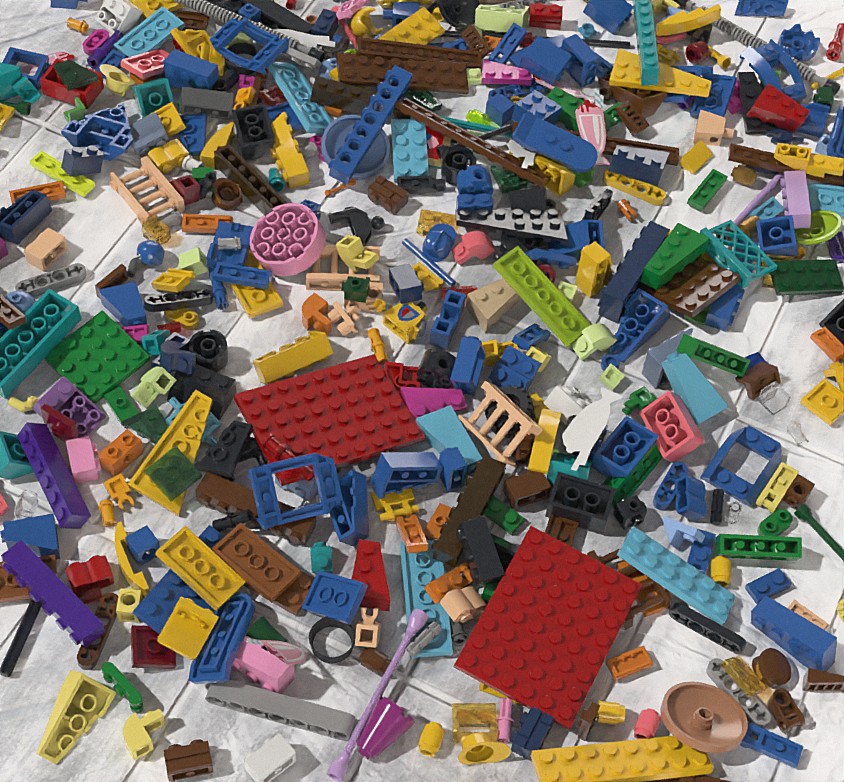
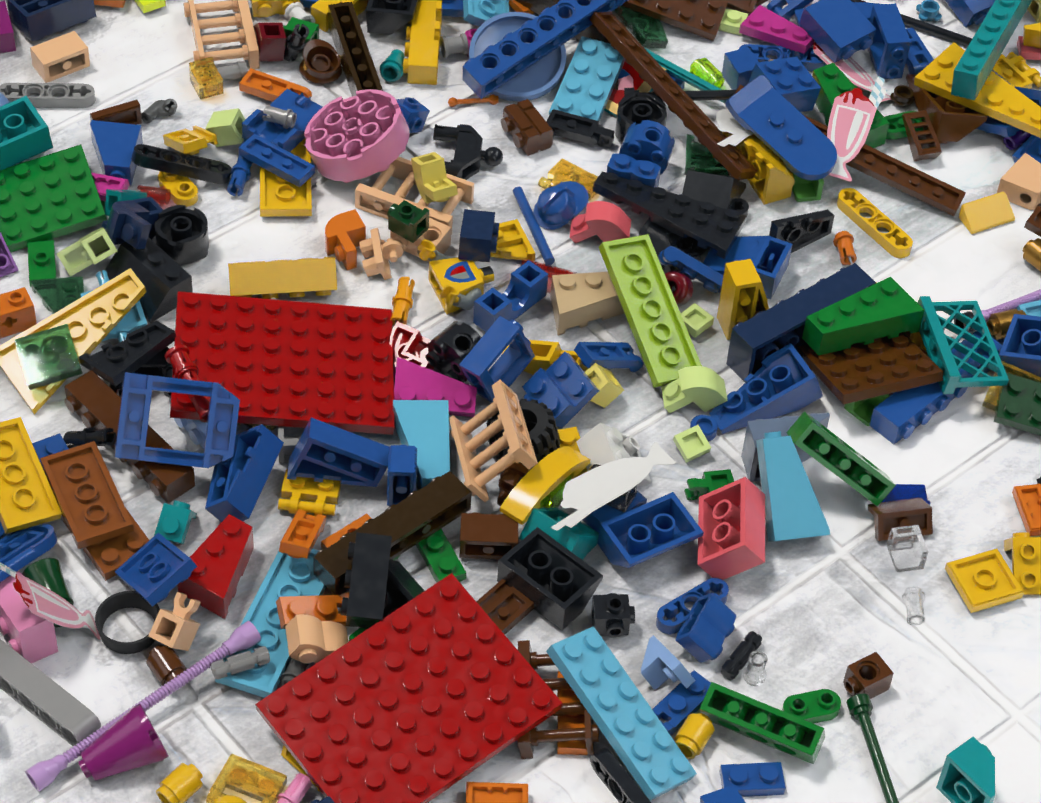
camera: 25 degrees right, 5 degrees down
(151, 252) = (183, 100): blue hair -> none
(628, 485) = (649, 573): green fence -> none
(639, 163) = (894, 193): dark blue wedge -> none
(707, 189) = (976, 258): green plate -> none
(735, 485) = (784, 639): blue wedge -> none
(777, 487) = (837, 659): light yellow plate -> none

